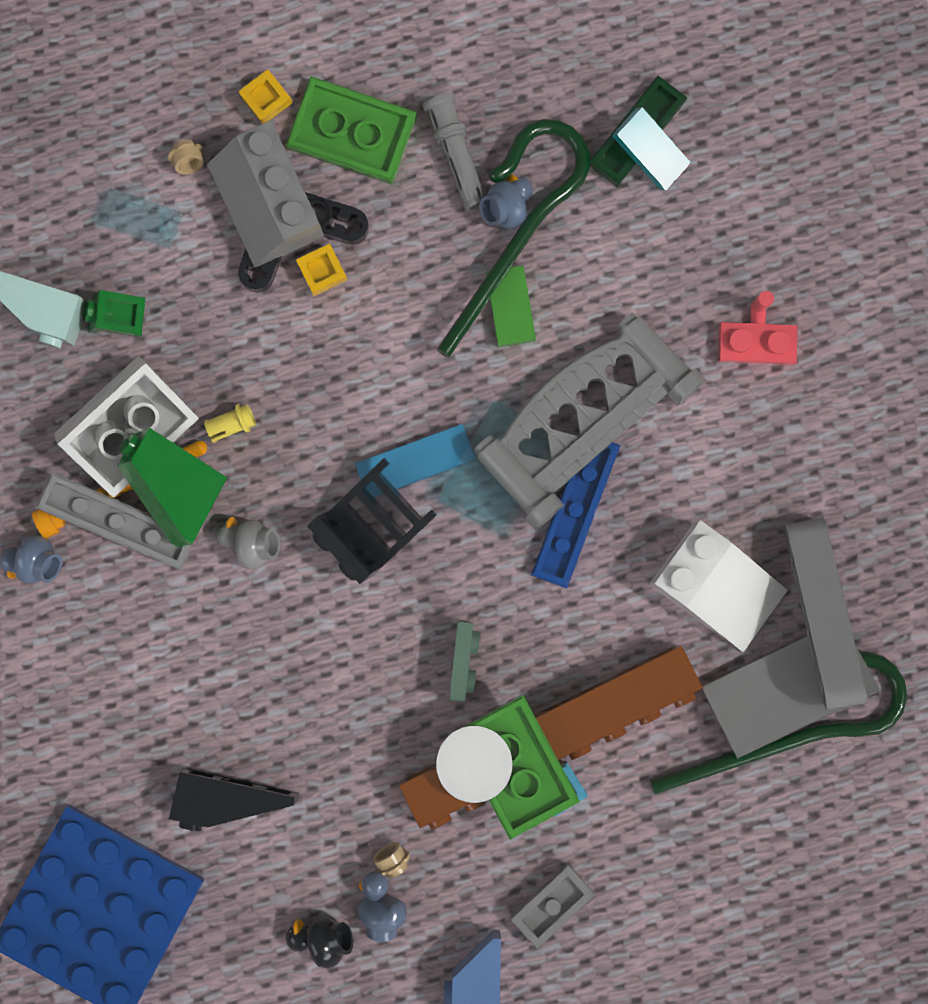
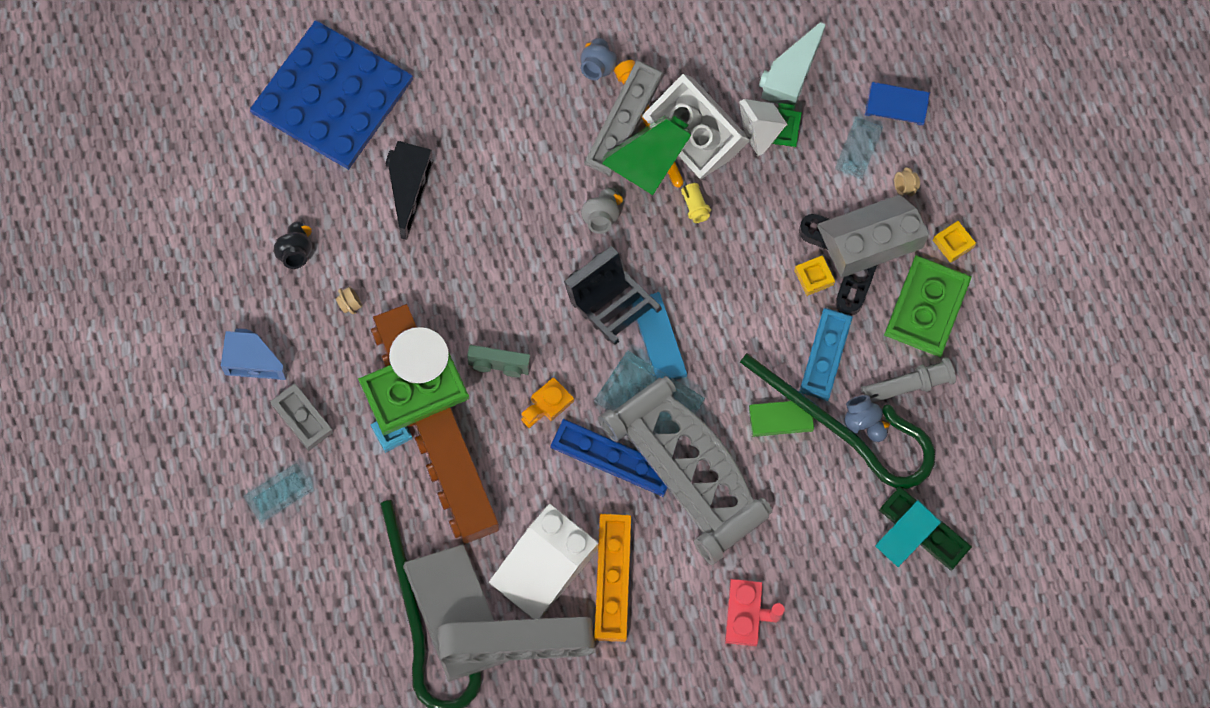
camera: 90 degrees right, 15 degrees down
(78, 169) = (897, 103): none -> blue hinge
(119, 339) = (761, 123): none -> white slope
(379, 911) = (311, 287): sand blue animal -> none
(423, 254) = (826, 354): none -> dark azure tile
(508, 592) = (548, 402): none -> light orange plate
(651, 924) = (278, 493): none -> clear light blue tile
(729, 501) = (612, 578): none -> light orange plate

